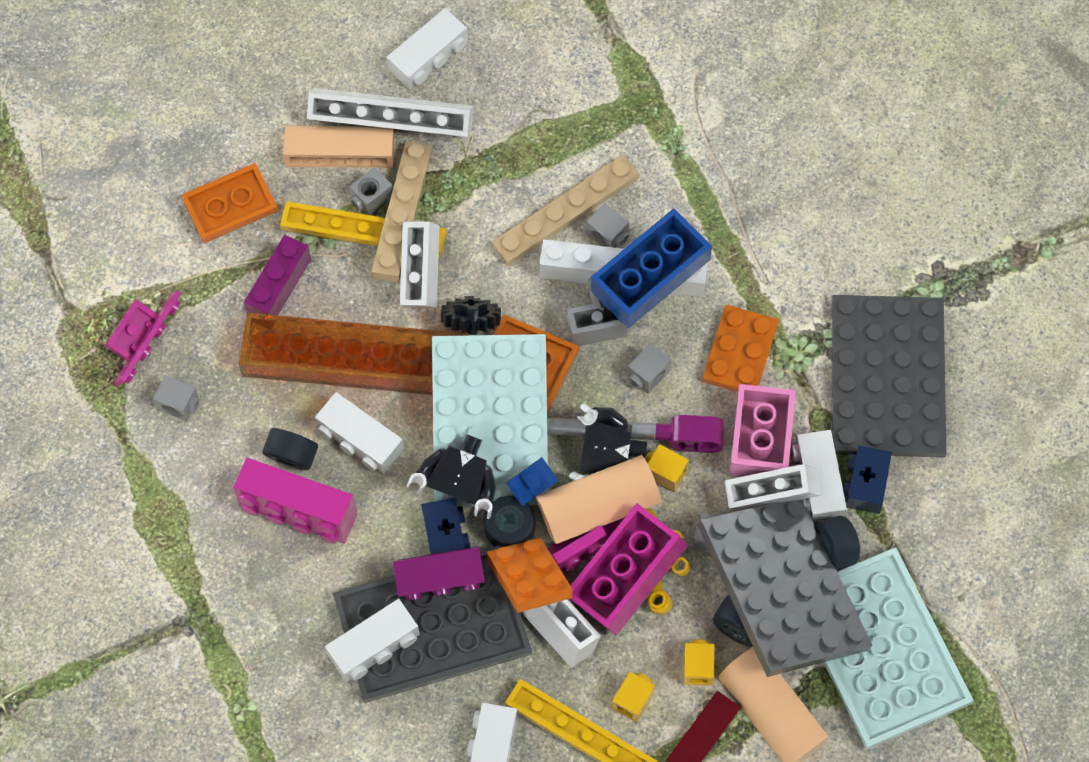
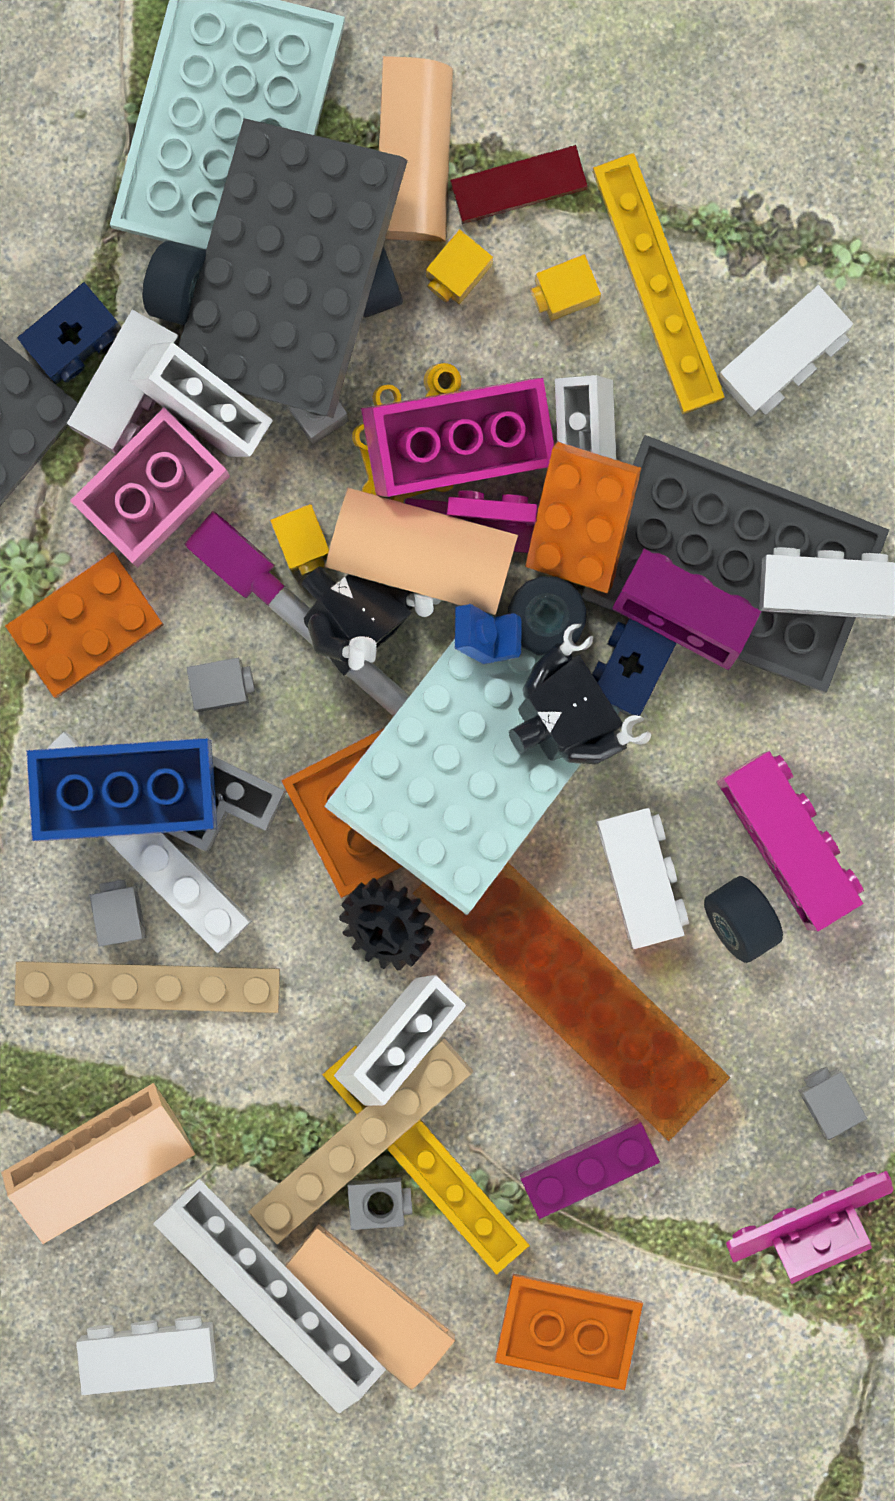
camera: 145 degrees left, 20 degrees up
(523, 114) = (97, 1163): none -> light nougat brick

